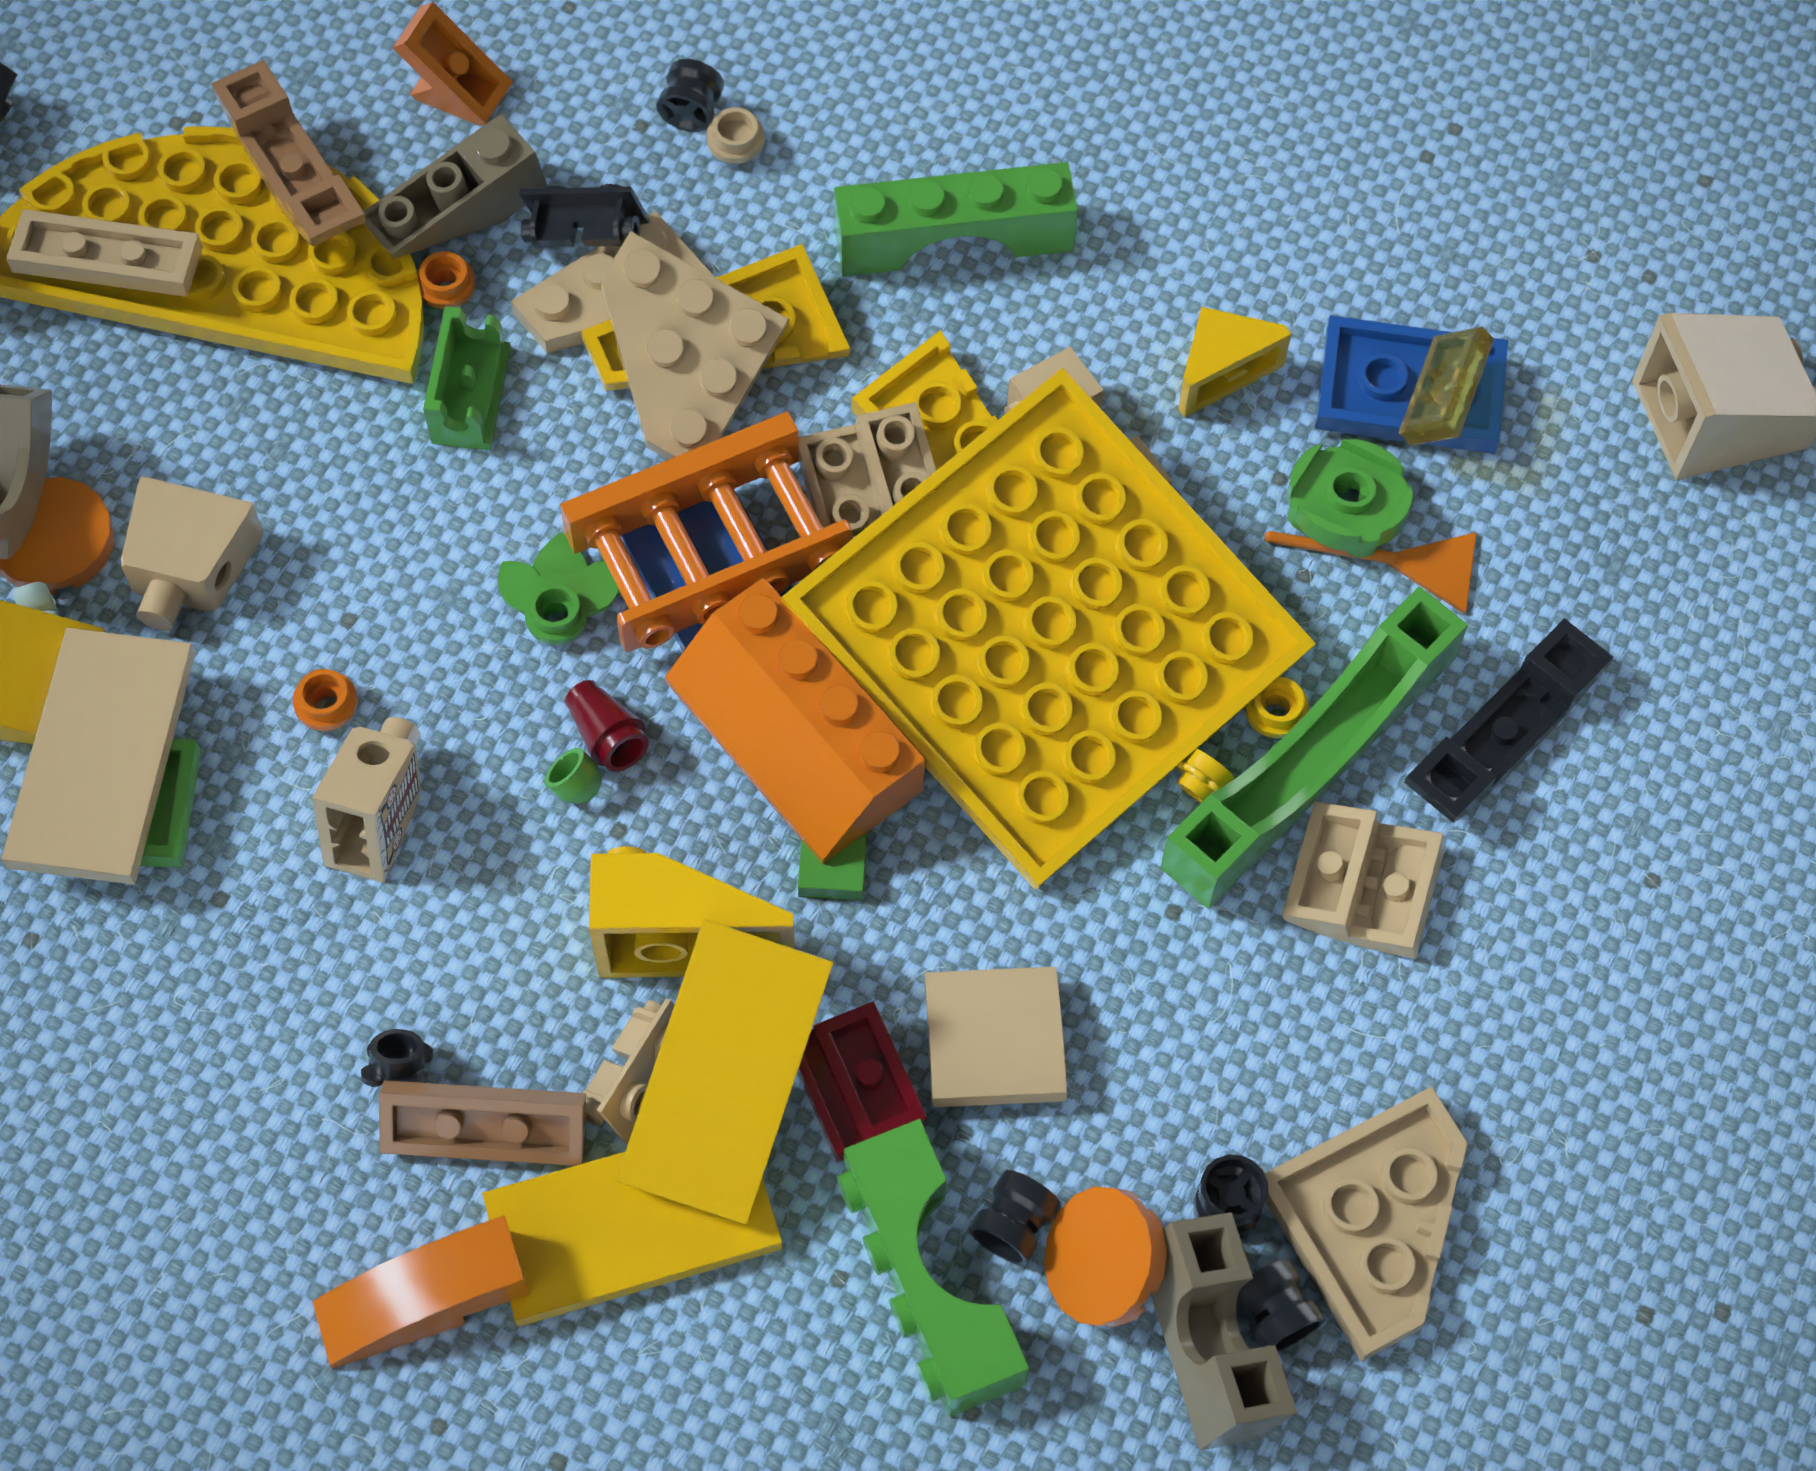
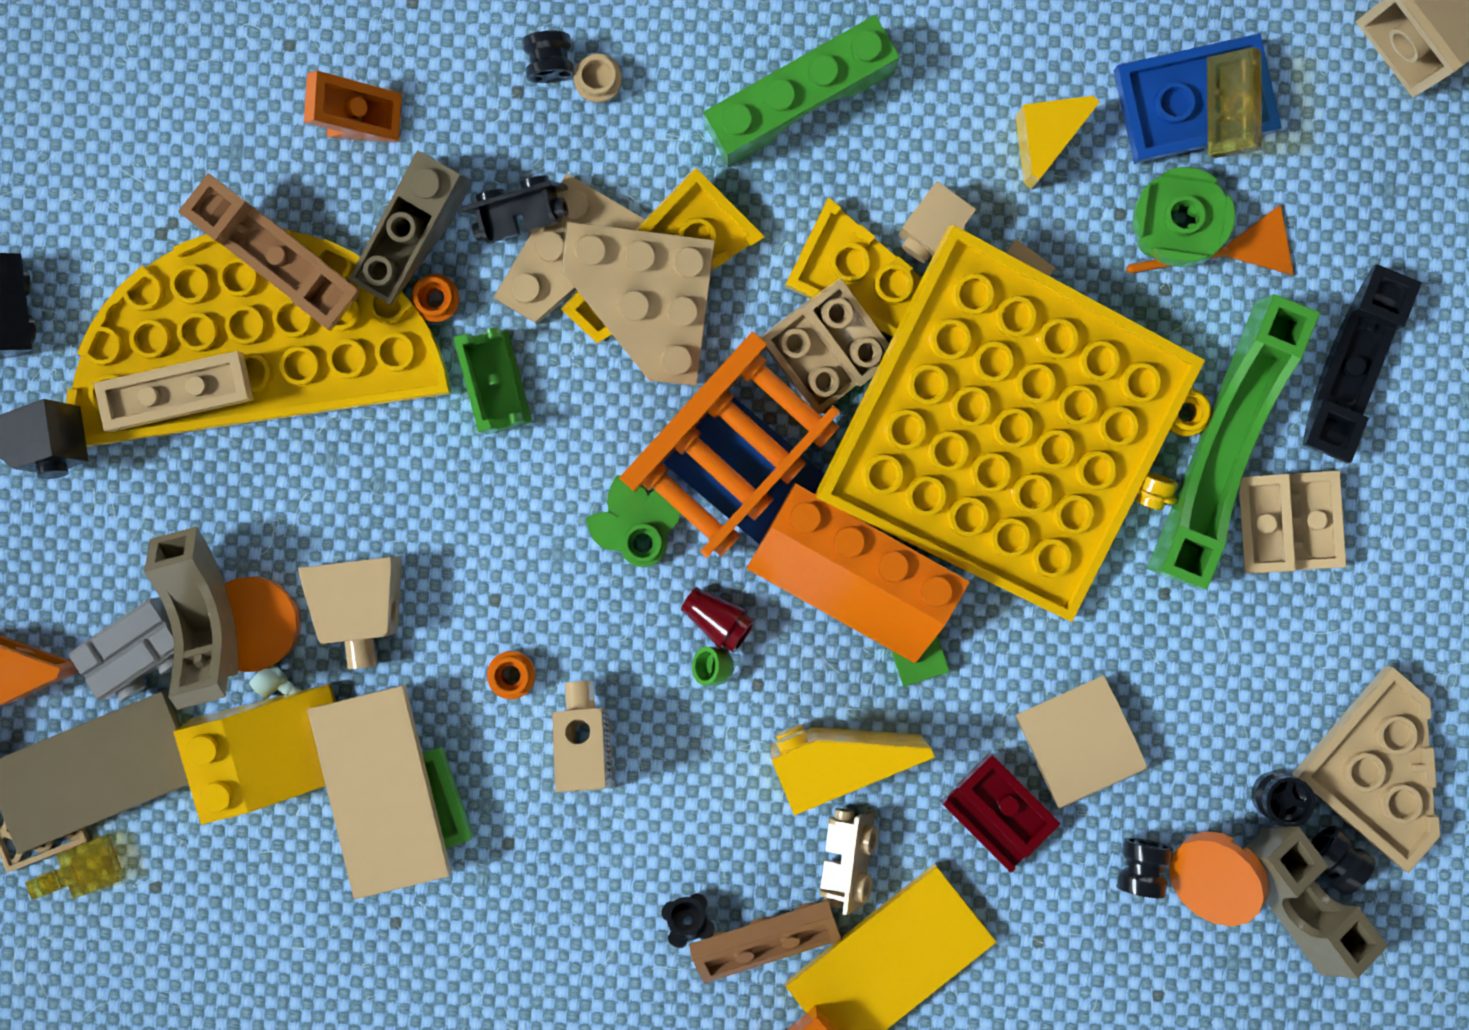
camera: 25 degrees left, 25 degrees up
(724, 1071) = (924, 863): yellow tile -> none
(964, 1344) = (1143, 963): bright green arch -> none

